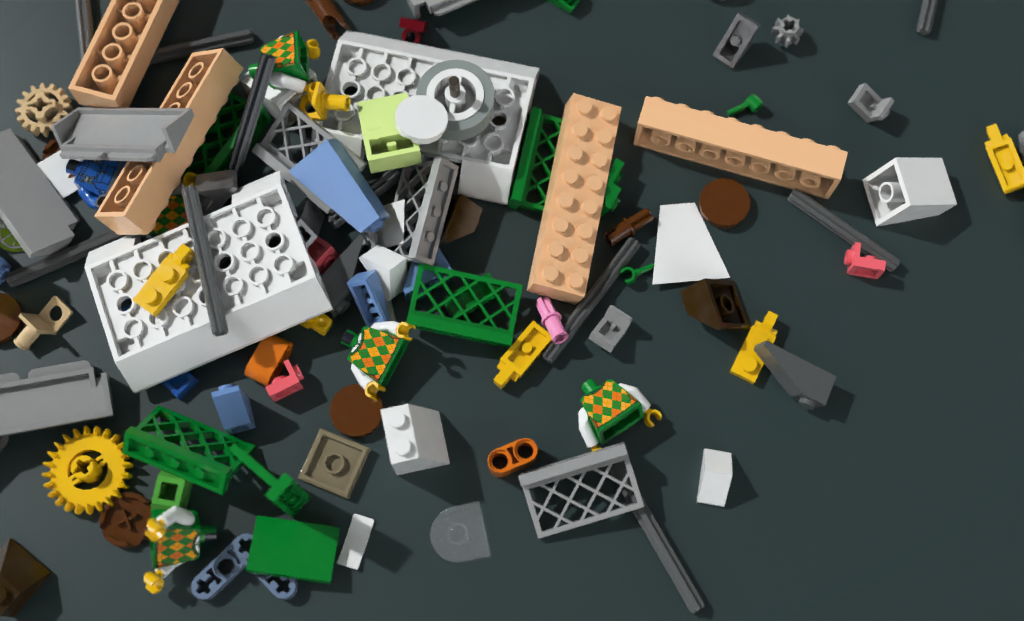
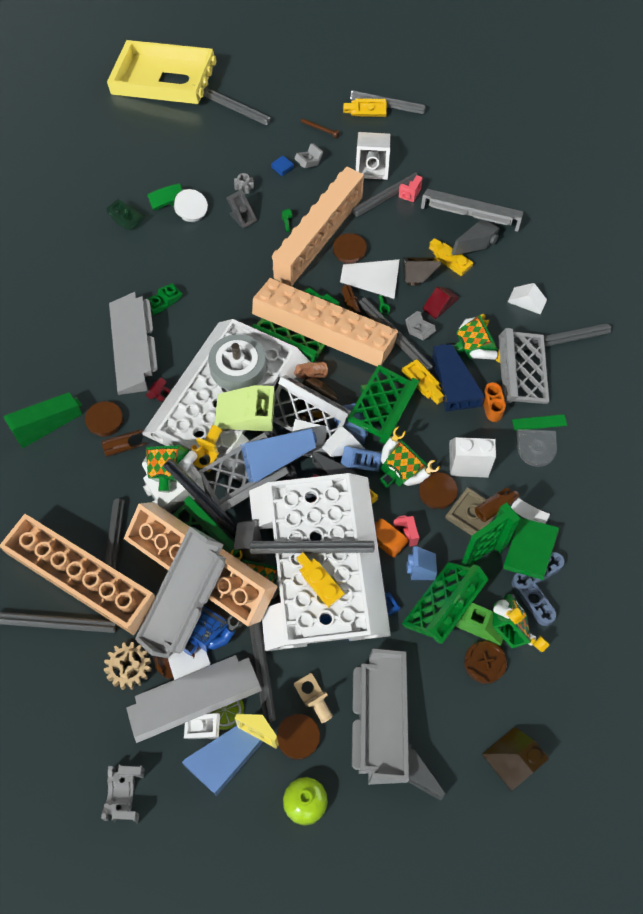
camera: 75 degrees left, 10 degrees down
(67, 458) = (450, 702): yellow gear -> none
(344, 488) = (491, 506): none -> reddish brown piece
(421, 119) = (251, 378): white tile -> none
(491, 201) = (311, 369): none -> nougat hinge
(504, 532) = (539, 422): none -> green sticker
(532, 396) = (455, 380): none -> dark blue slope
(551, 320) = (404, 357): bright pink axle -> none
(669, 350) = (439, 302): none -> dark red slope
(844, 73) = (282, 165): none -> blue tile
(856, 368) = (471, 207): none -> light grey slope
(936, 130) = (335, 133): none -> reddish brown piece

